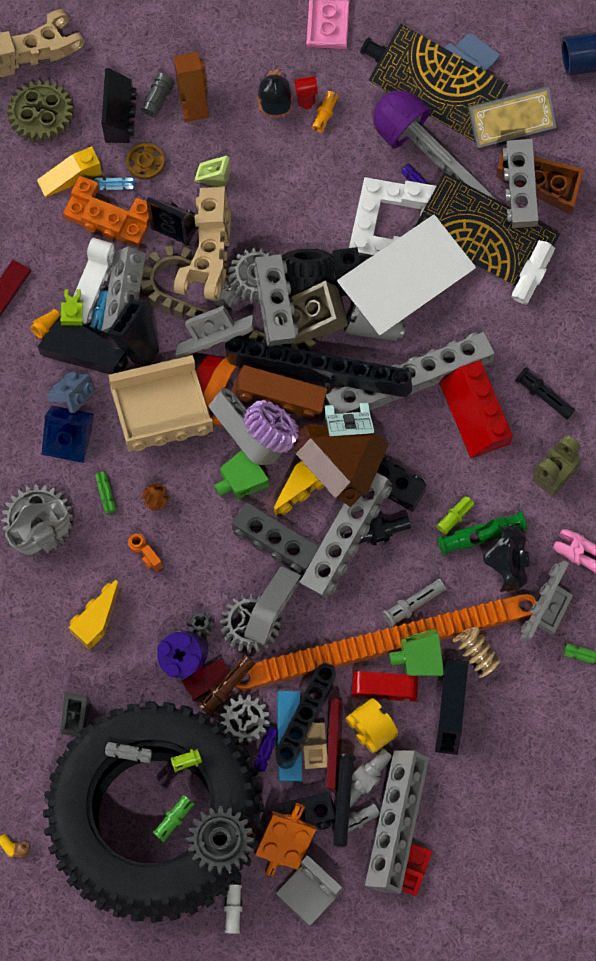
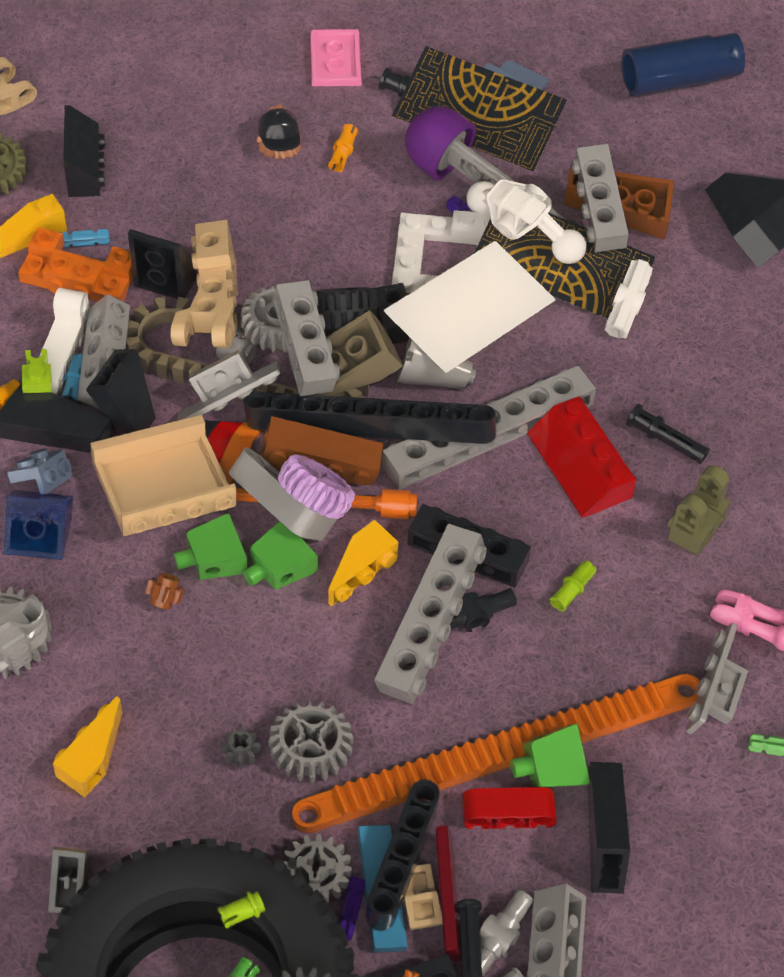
camera: 10 degrees left, 15 degrees down
(105, 492) = (95, 593): bright green axle -> none
(128, 752) = (154, 906): light grey axle -> none
(145, 161) = (122, 214): pearl gold wheel -> none
(149, 557) = (162, 667): orange plate -> none
(160, 89) = (134, 136): dark grey axle -> none
(173, 645) = (201, 780): dark purple brick -> none
(191, 85) = (174, 121): dark orange wedge -> none
(193, 465) = (213, 550): none -> bright green torso
(205, 679) = (256, 820): dark red tile -> none
(214, 172) = (213, 210): yellowish green slope -> none
(219, 694) = (277, 835): reddish brown pin -> none
(251, 516) = (328, 618): dark grey brick -> none
(271, 605) = (337, 711): light grey beam -> none
(306, 91) = (318, 120): red piece -> none
(342, 462) = (417, 513): reddish brown panel -> none
(349, 422) = (420, 473): light aqua flag -> none
(372, 725) = (500, 858): yellow brick -> none
(403, 605) = (523, 705): light grey pin -> none
(455, 193) = (521, 207): none -> white piece
(478, 650) = (632, 748): tan piece -> none
(484, 532) = (631, 596): green piece -> none
(509, 558) = (653, 630): black piece -> none
(512, 117) = (554, 141): pearl gold tile -> none

